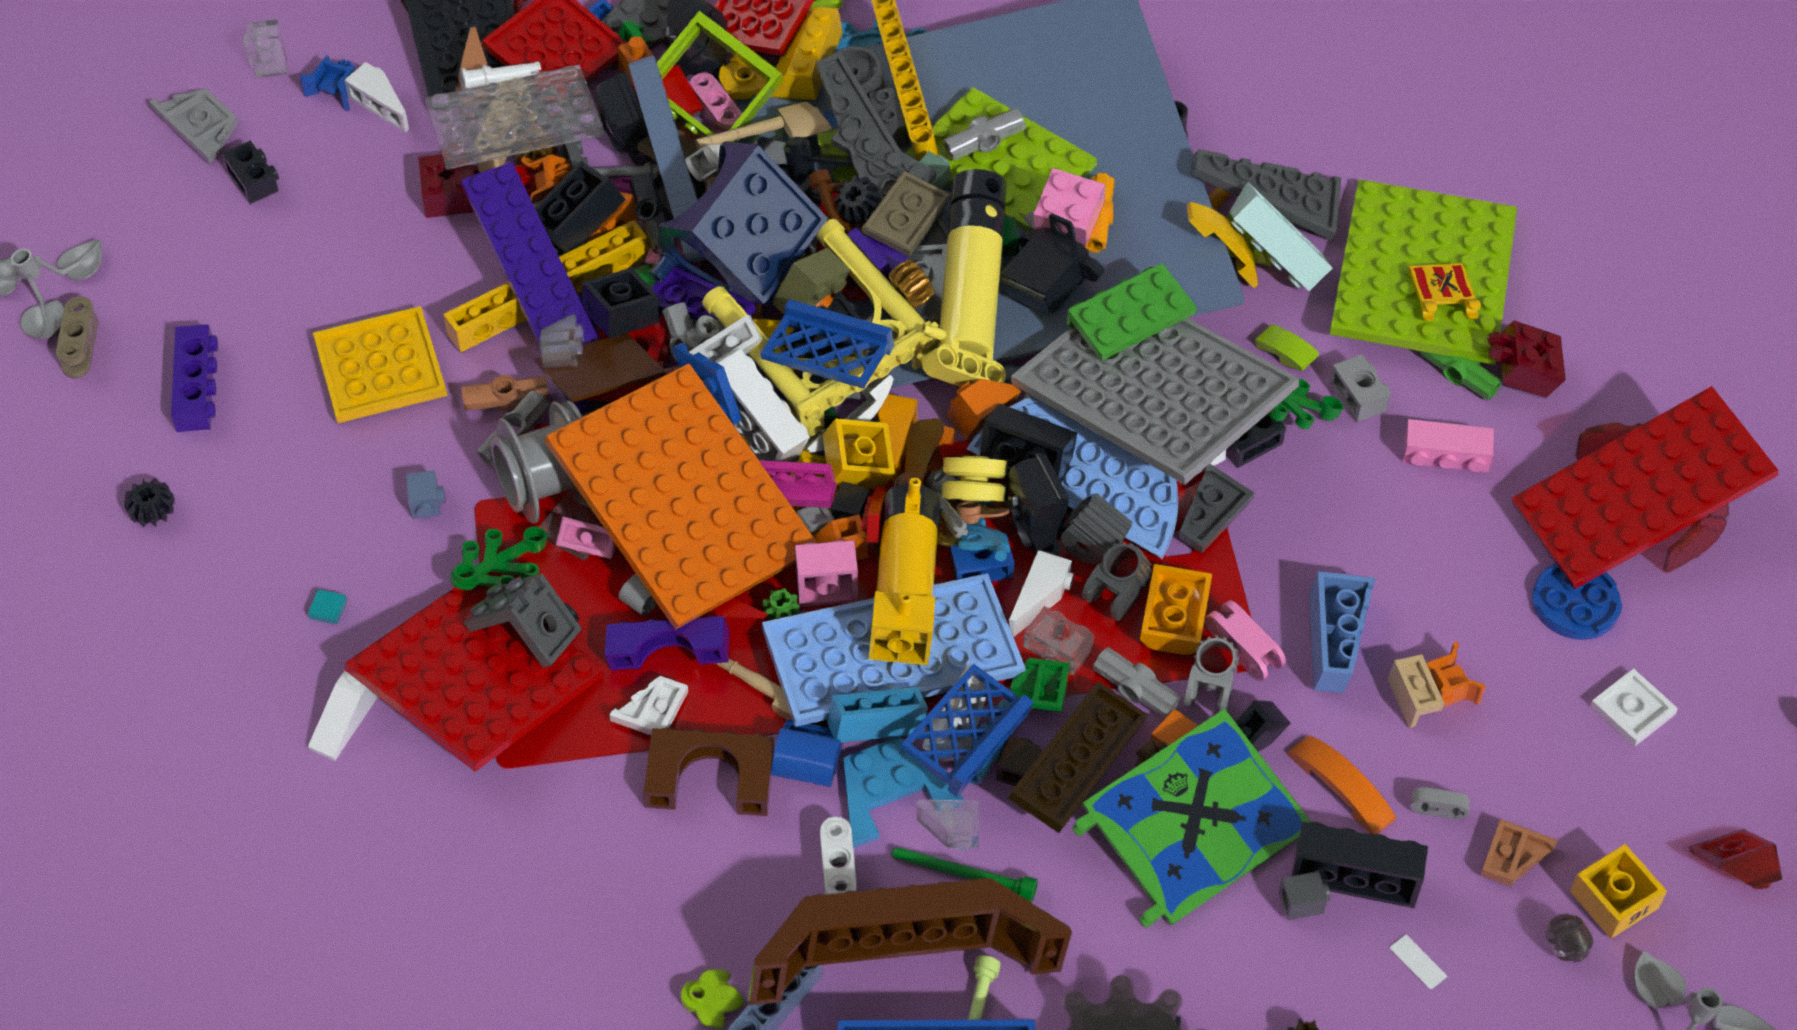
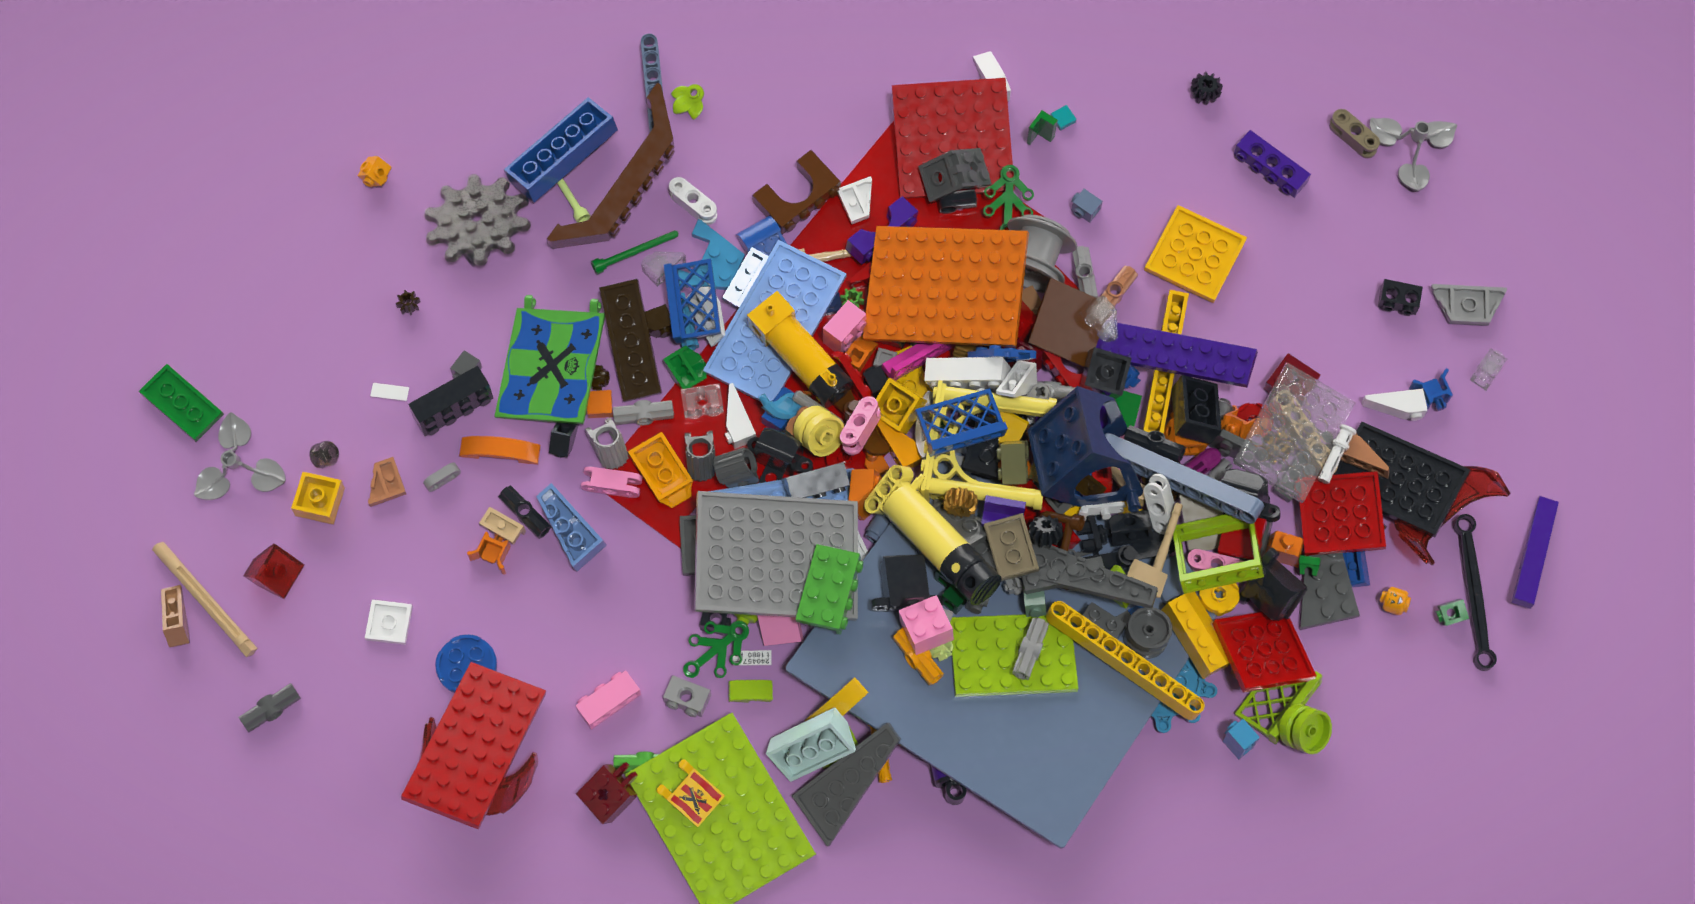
camera: 135 degrees right, 15 degrees up
(373, 601) = (1043, 125): none -> green panel
(937, 436) = (860, 425): none -> bright pink piece
(1374, 703) = (532, 520): none -> black piece

